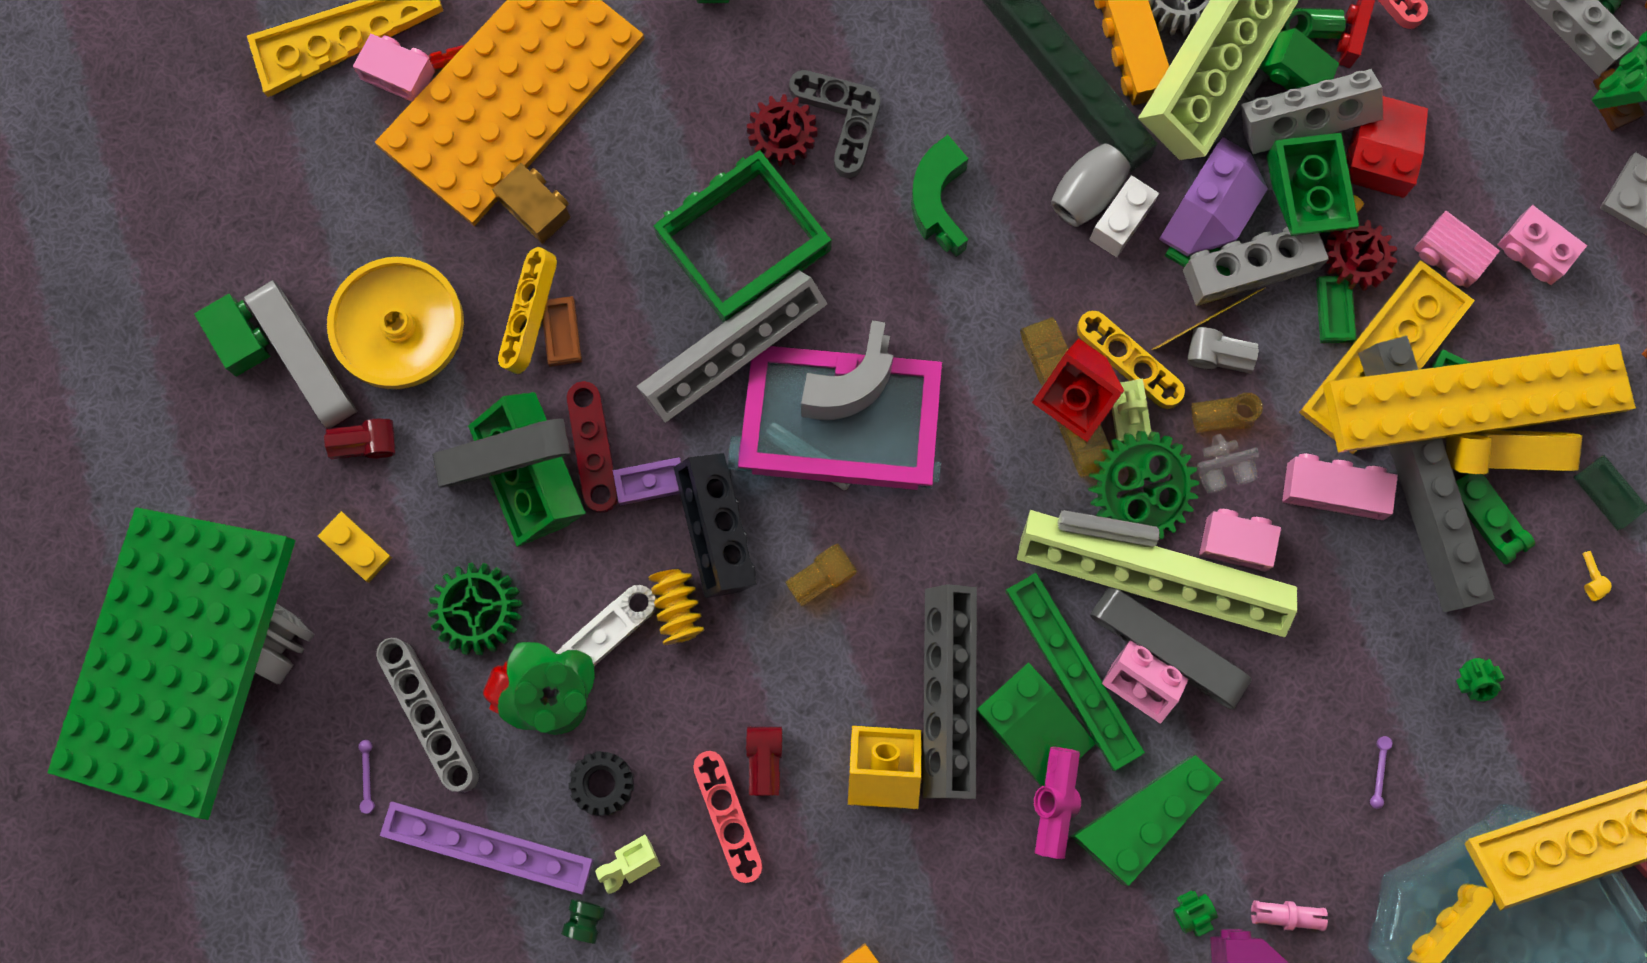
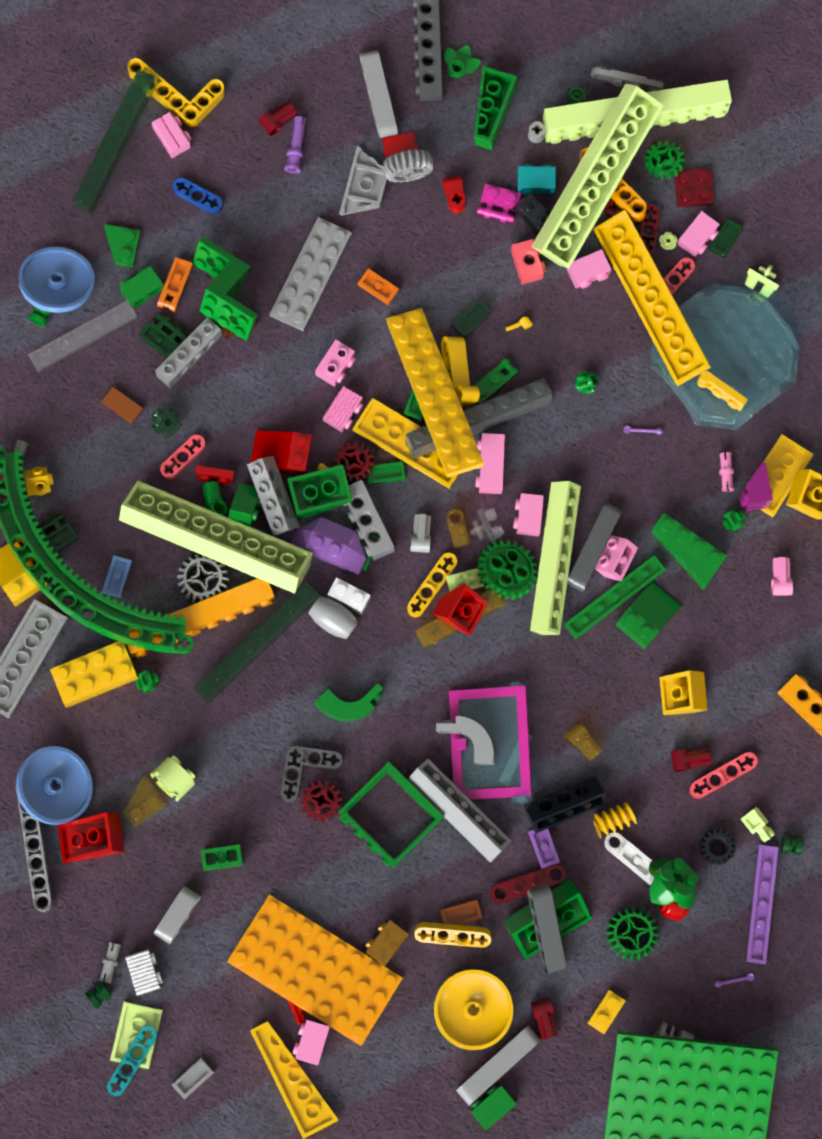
camera: 105 degrees left, 0 degrees up
(413, 706) = (704, 945): light grey beam -> none
(950, 692) = (638, 662): dark grey brick -> none
(1057, 802) = (688, 598): dark pink piece -> none
(1108, 528) = (536, 586): light grey axle -> none
(1208, 318) = (402, 543): yellow sticker -> none

